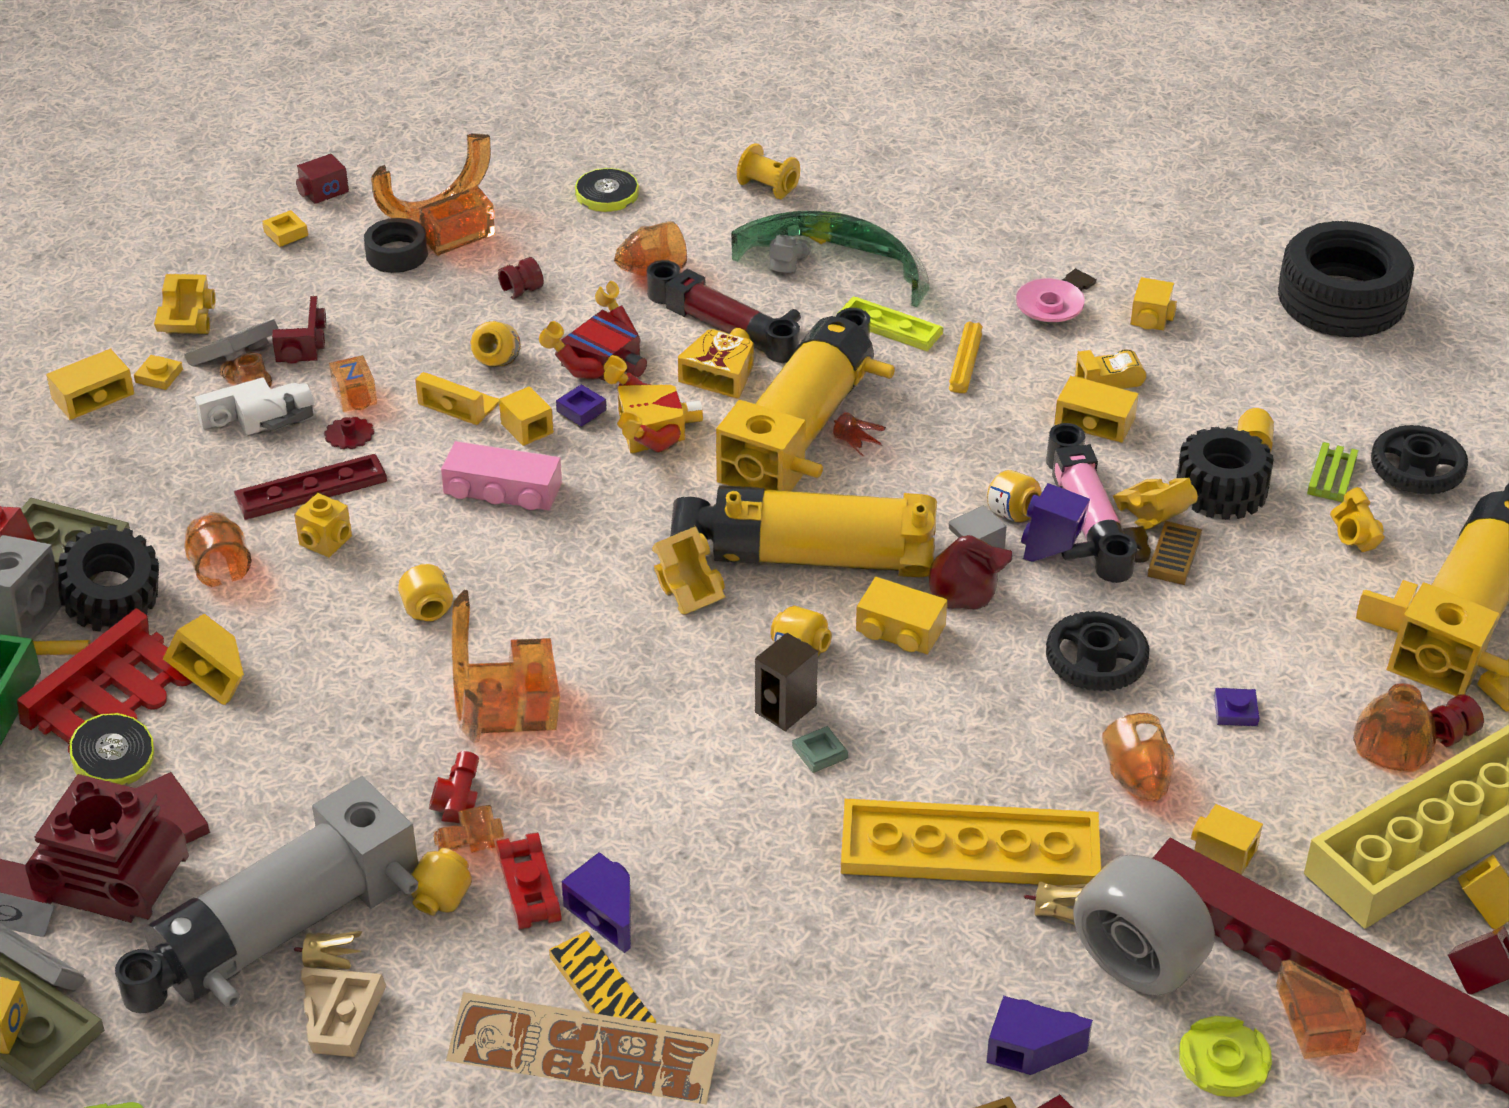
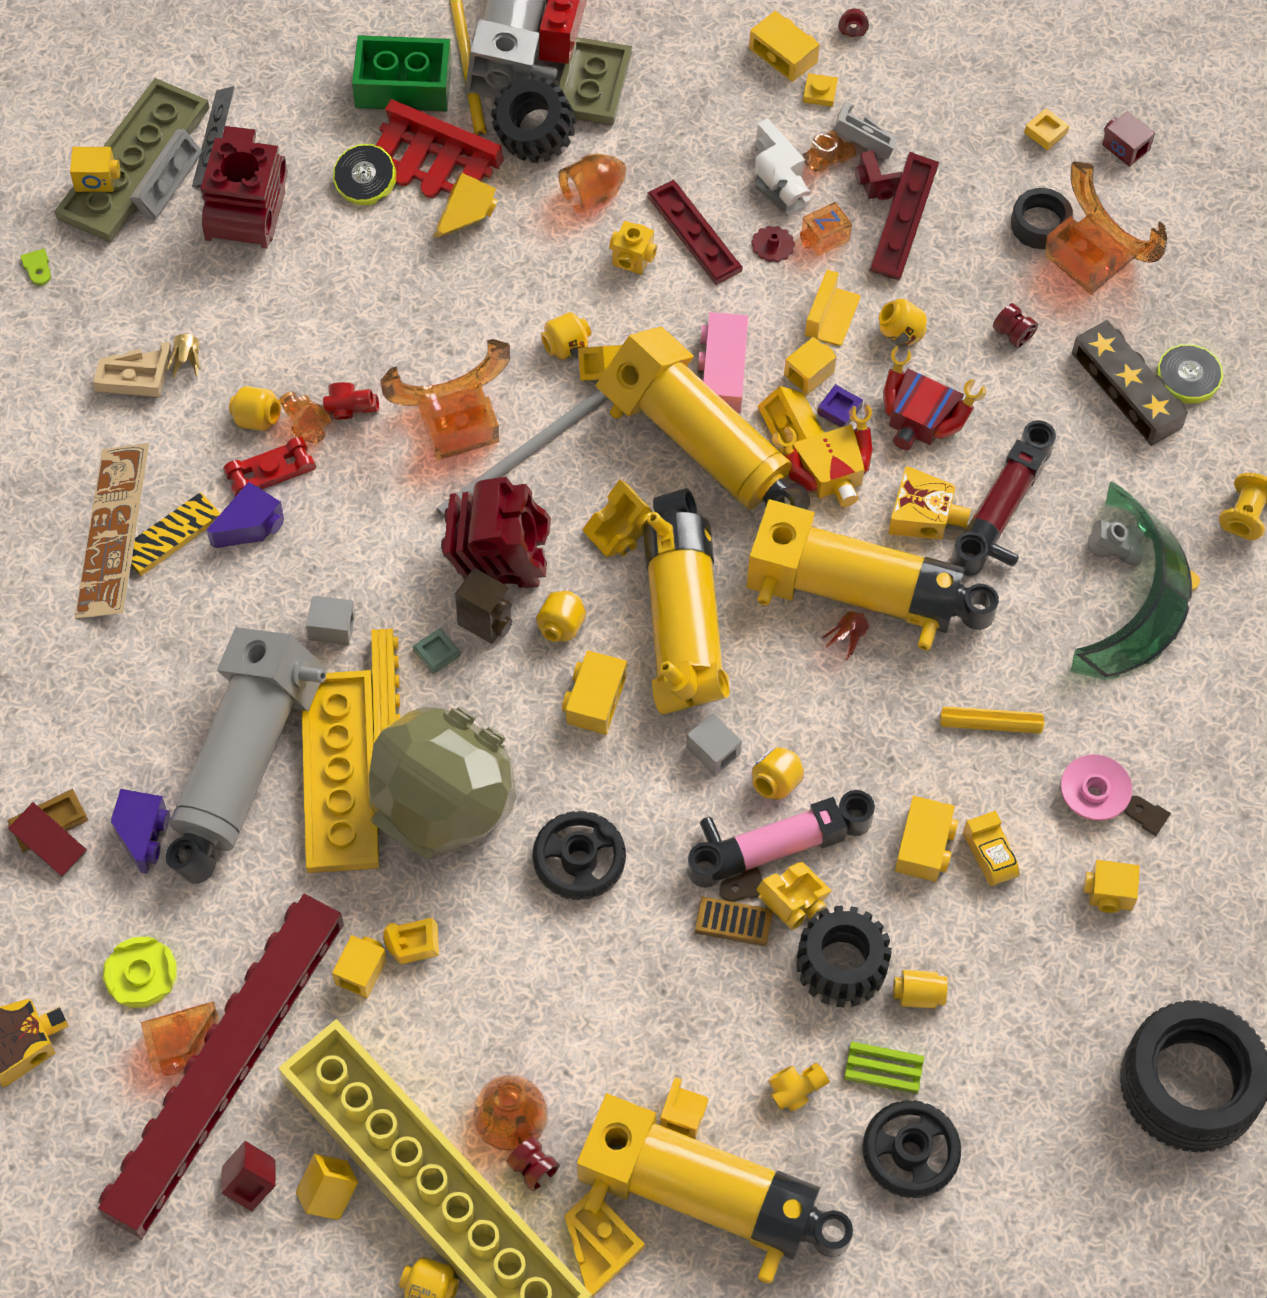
camera: 80 degrees right, 20 degrees up
(82, 333) = (853, 16): none -> dark red plate
(177, 806) = (313, 227): dark red tile -> none
(185, 305) = (901, 84): yellow cylinder -> none
(353, 851) = (265, 341): light grey piece -> none
(365, 321) = (904, 216): none -> dark red plate
(470, 568) = (595, 360): none -> yellow panel
(542, 502) = (654, 379): none -> yellow piece
(564, 649) = (534, 443): none -> light grey piece
(590, 442) = (789, 409): none -> yellow panel
(608, 218) = (1129, 382): none -> dark brown brick
(649, 245) = (1076, 422): clear orange helmet -> none
(699, 653) = (497, 533): none -> dark red piece
(771, 823) = (330, 620): none -> light grey panel
(830, 791) = (384, 679): none -> yellow piece
(898, 325) = (1032, 648): neon yellow tile -> none
(943, 907) = (266, 680): none -> light grey piece
(967, 572) = (654, 738): dark red piece -> none
(1024, 717) = (439, 781): none -> olive rock
(1055, 522) = (719, 797): dark purple slope -> none
(1055, 900) = (281, 831): pearl gold piece -> none
(1138, 765) = (421, 894): clear orange helmet -> none
(1144, 924) = (226, 887): light grey wheel -> none
(1194, 792) = (412, 940): none -> yellow plate
(1236, 707) = (533, 977): dark purple plate -> none

